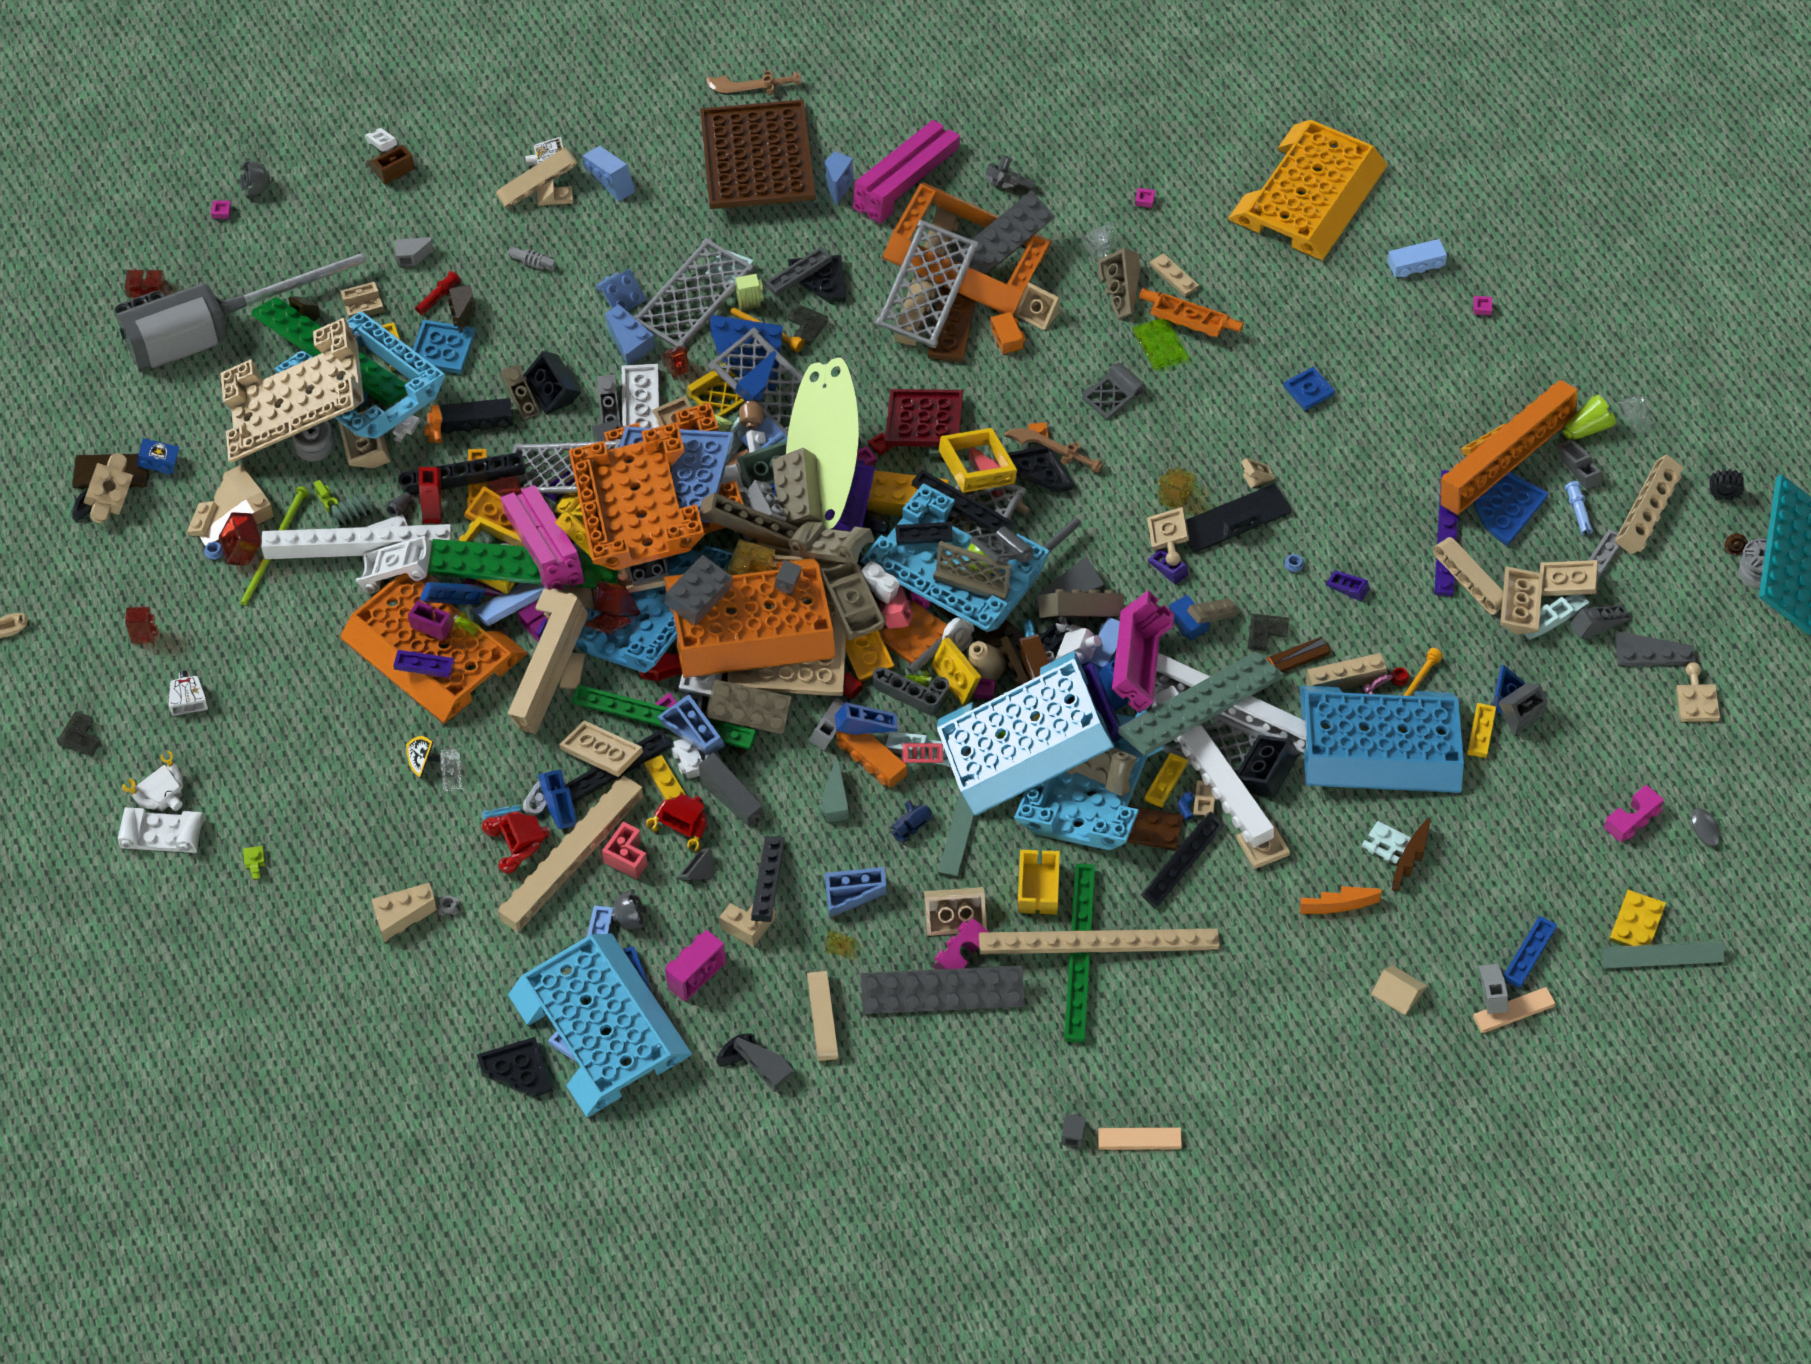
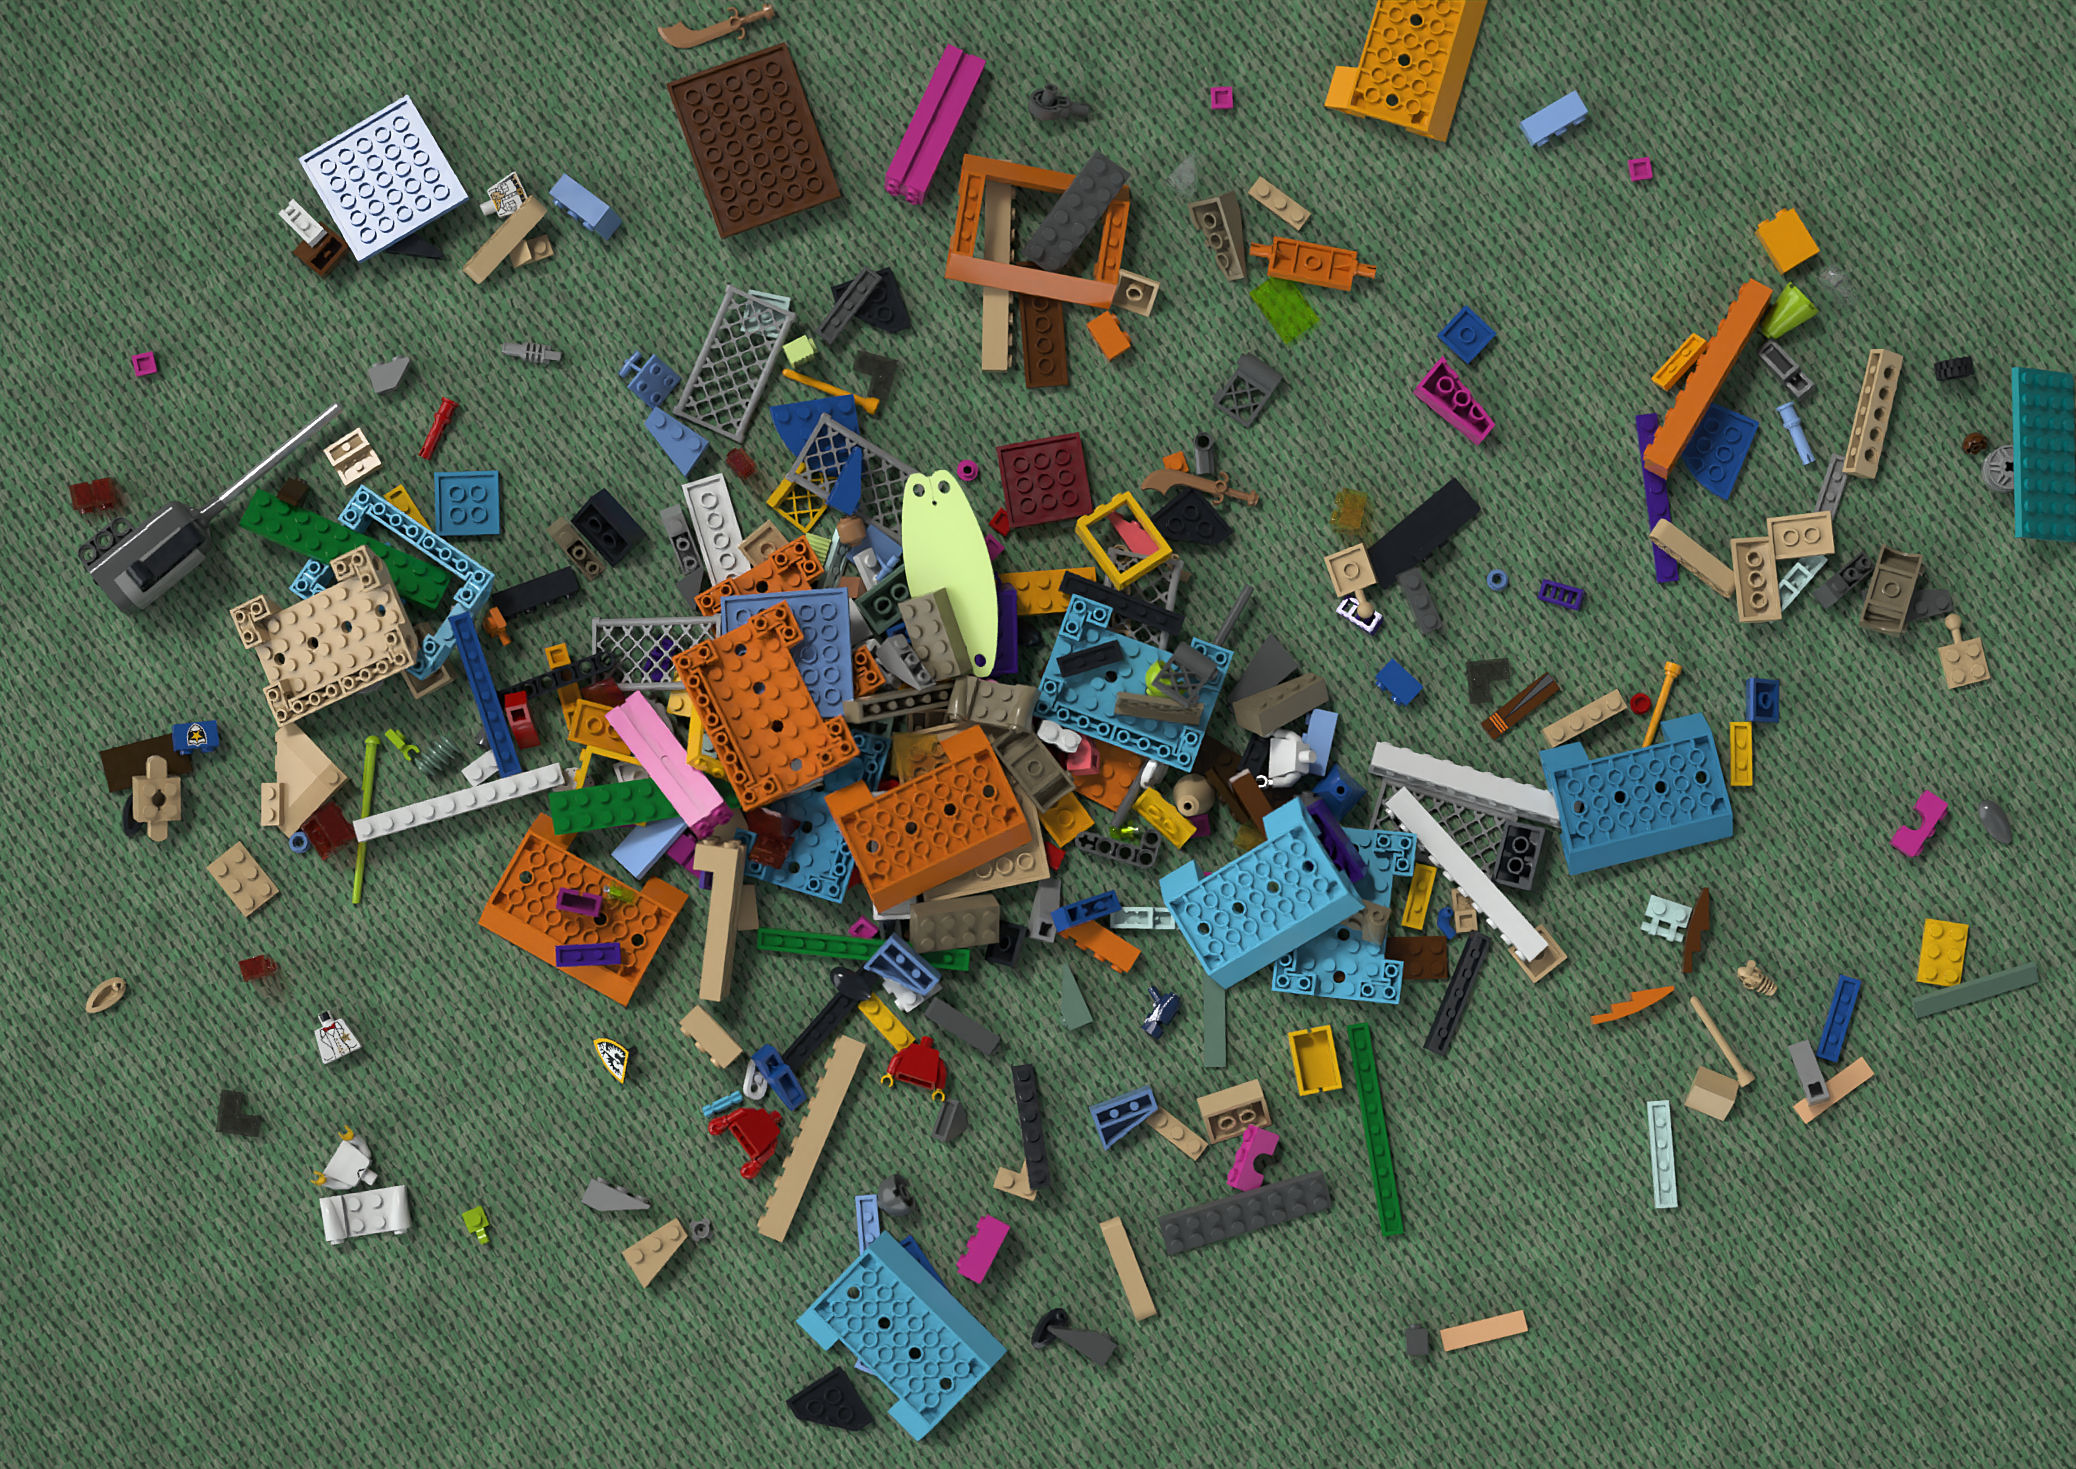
camera: 20 degrees left, 30 degrees up
(156, 567) = (243, 879): none -> tan plate
(180, 311) = (166, 557): none -> black beam
(255, 176) = (170, 313): dark grey cylinder -> none
(375, 862) = (607, 1198): none -> light grey slope
(405, 557) = (513, 827): white piece -> none
(406, 460) = (484, 694): none -> blue plate
(451, 768) = (653, 1063): clear slope -> none
(452, 593) = (588, 857): blue plate -> none
(455, 124) = (383, 179): none -> plate
(458, 170) = (415, 247): none -> black slope
(461, 305) = (475, 445): dark brown slope -> none
(508, 753) = (710, 1037): none -> tan piece
(601, 748) = (807, 1005): tan plate -> none
(622, 851) = (866, 1130): coral brick -> none
(645, 739) = (850, 983): none -> black arm
(698, 590) = (872, 822): dark grey brick -> none
(788, 577) = (963, 776): dark grey brick -> none
(792, 742) = (1009, 946): none -> black slope
(838, 175) = (857, 155): medium blue slope -> none
(839, 944) = (1123, 1177): clear yellow tile -> none
(862, 406) = (967, 477): none -> dark pink plate
(898, 919) = (1176, 1132): none -> tan plate
(939, 752) = (1153, 926): coral slope -> none
(973, 246) = (1029, 375): light grey door -> none
(1028, 627) = (1230, 742): medium azure axle -> none
(1064, 426) = (1204, 456): none -> dark grey piece
(1098, 941) = (1393, 1116): tan plate -> none
(1137, 649) = (1358, 762): dark pink brick -> none
(1200, 703) = (1440, 808): sand green plate -> none
(1213, 610) = (1424, 672): dark tan plate -> none
(1221, 559) = (1419, 600): none -> dark grey brick
(1256, 472) = (1434, 467): tan slope -> none
(1285, 428) = (1454, 402): none -> dark pink wedge
(1341, 1027) = (1662, 1154): none -> light aqua plate
(1380, 681) = (1609, 726): bright pink piece -> none
(1432, 980) = (1744, 1076): none -> tan piece
(1457, 902) = (1753, 978): none -> tan piece
(1524, 706) = (1781, 721): dark grey slope -> none
(1598, 374) = (1786, 240): none -> light orange brick
(1639, 631) = (1891, 591): none -> dark tan piece

